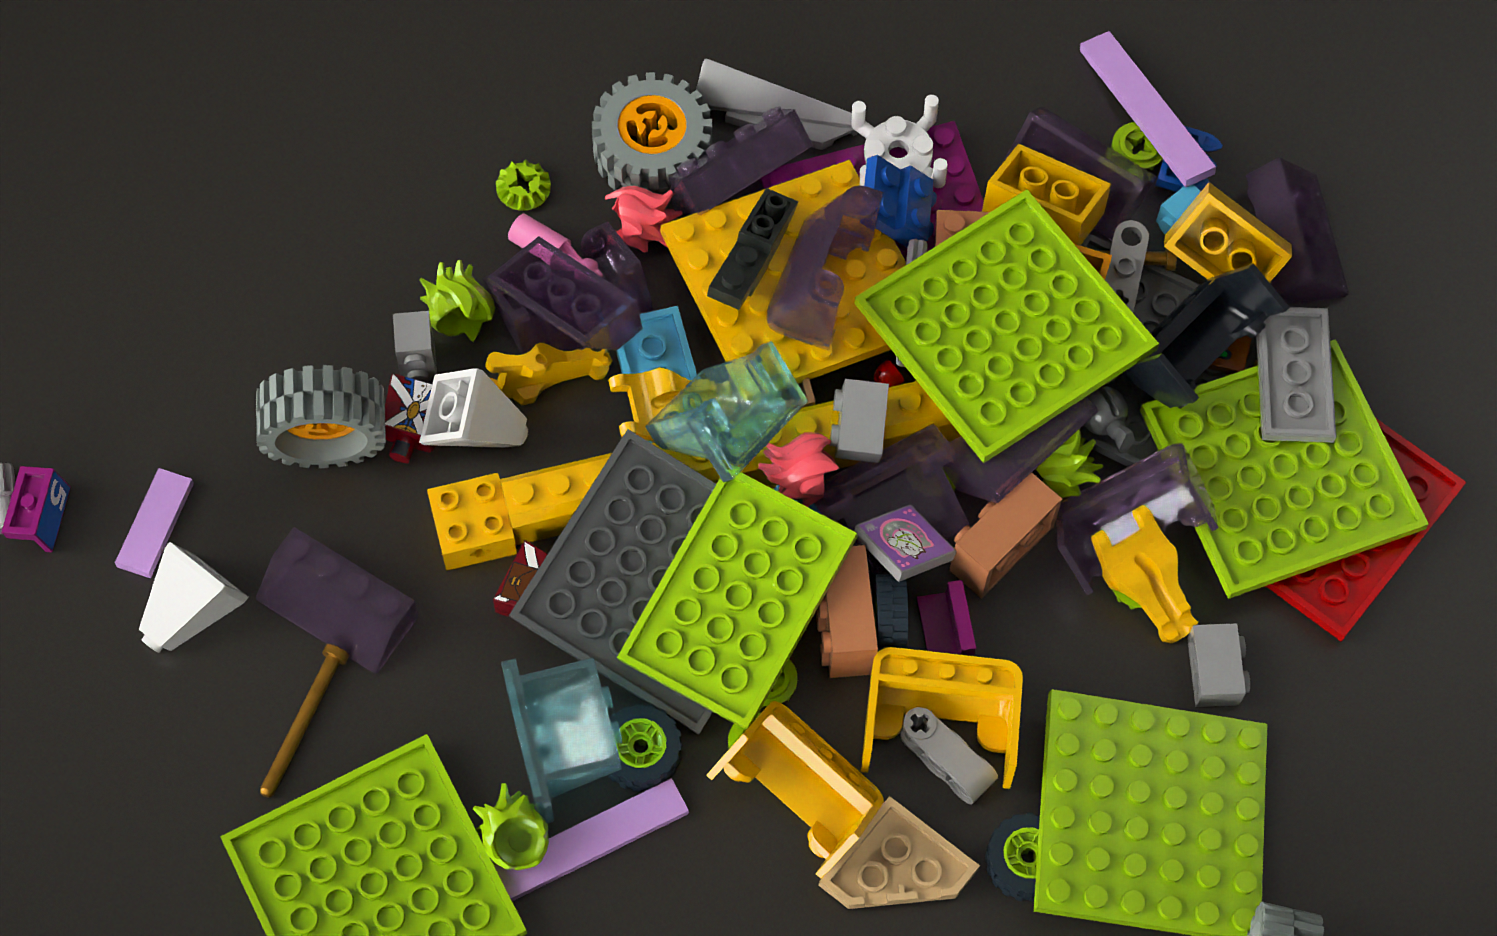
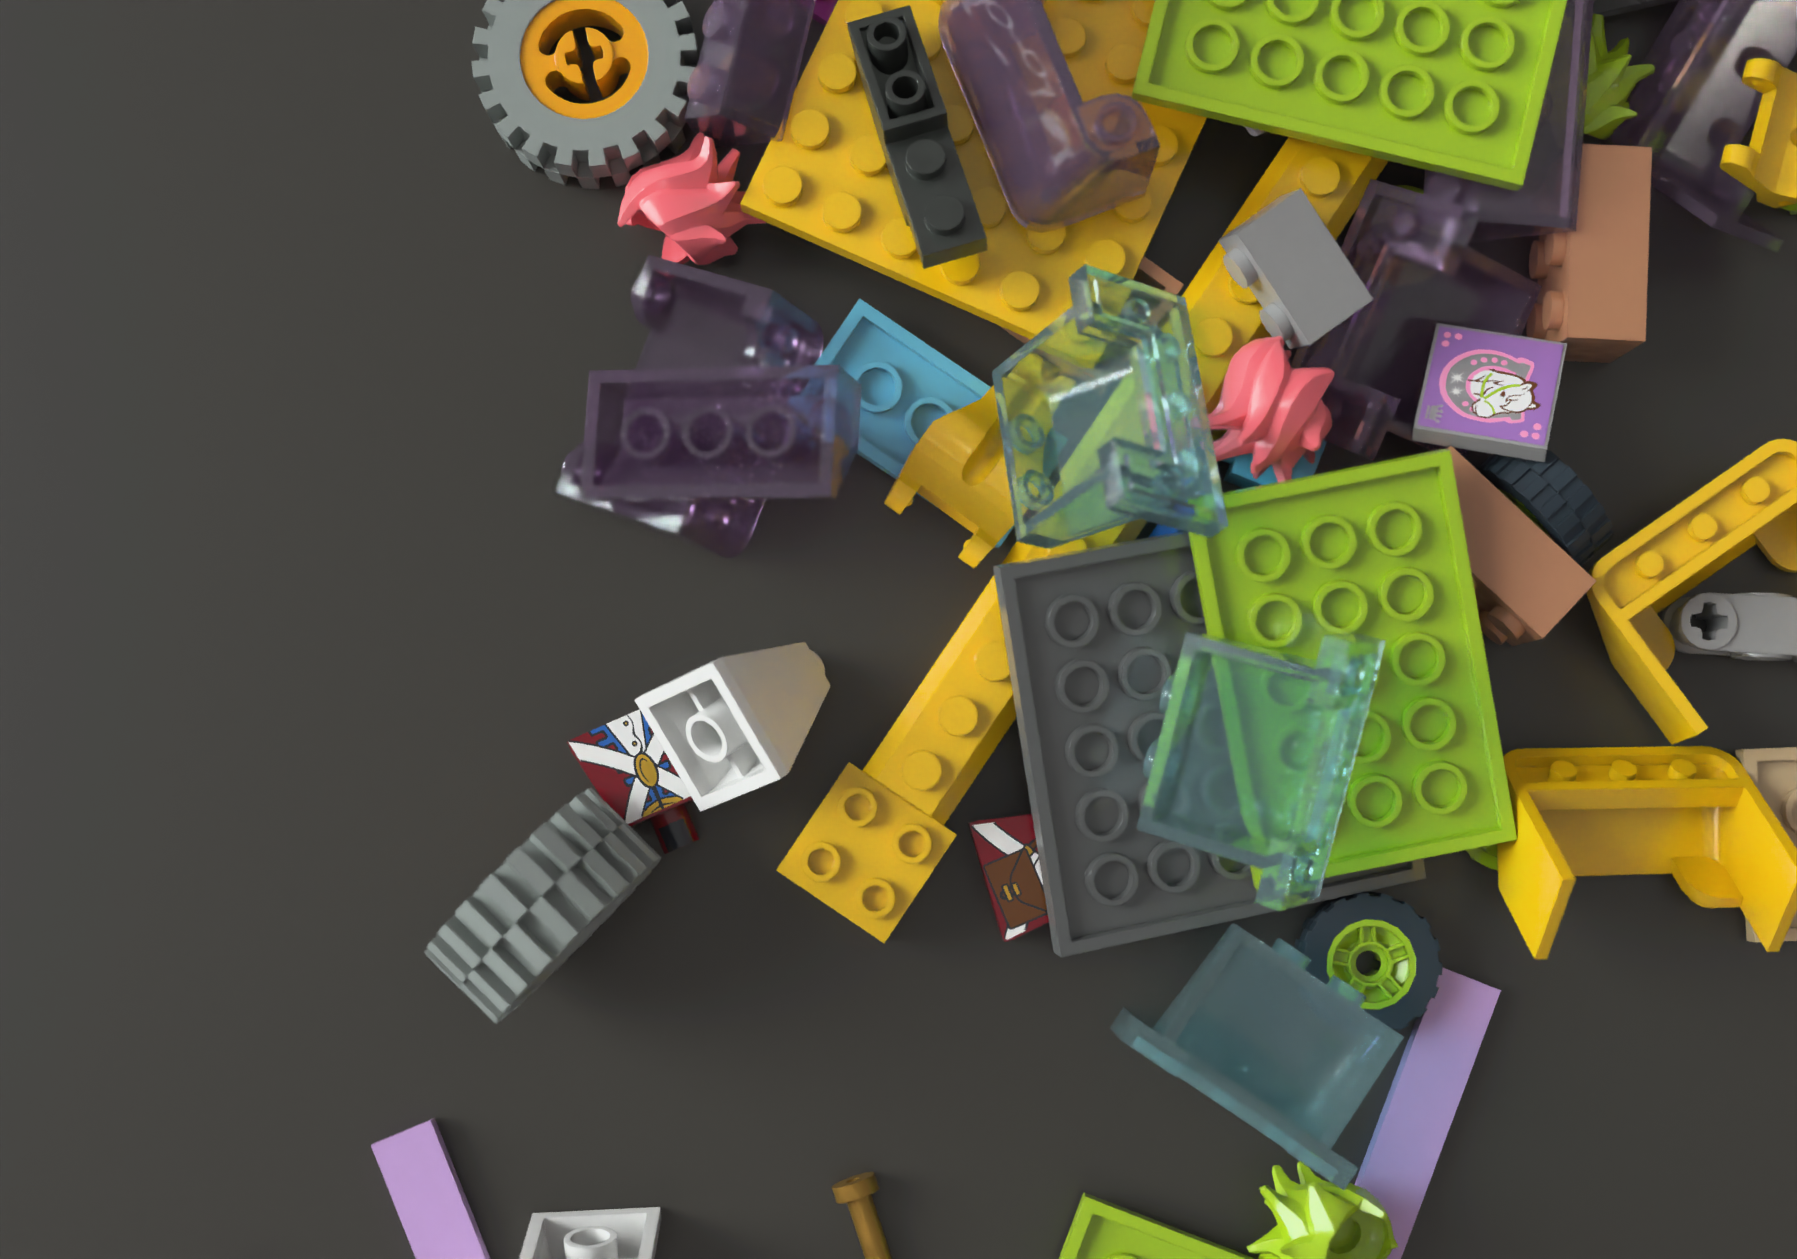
camera: 40 degrees left, 20 degrees up
(336, 600) = (788, 1118): clear purple slope -> none
(415, 345) = (562, 678): light grey brick -> none
(457, 302) = (552, 556): lime hair -> none
(517, 197) = (479, 320): lime gear -> none
(527, 229) = (565, 359): bright pink wheel -> none
(529, 374) = (756, 580): yellow animal -> none
(668, 589) = (1260, 755): none -> clear light blue windscreen
(888, 374) = (1223, 151): red hinge -> none
(947, 621) = (1612, 443): magenta panel -> none

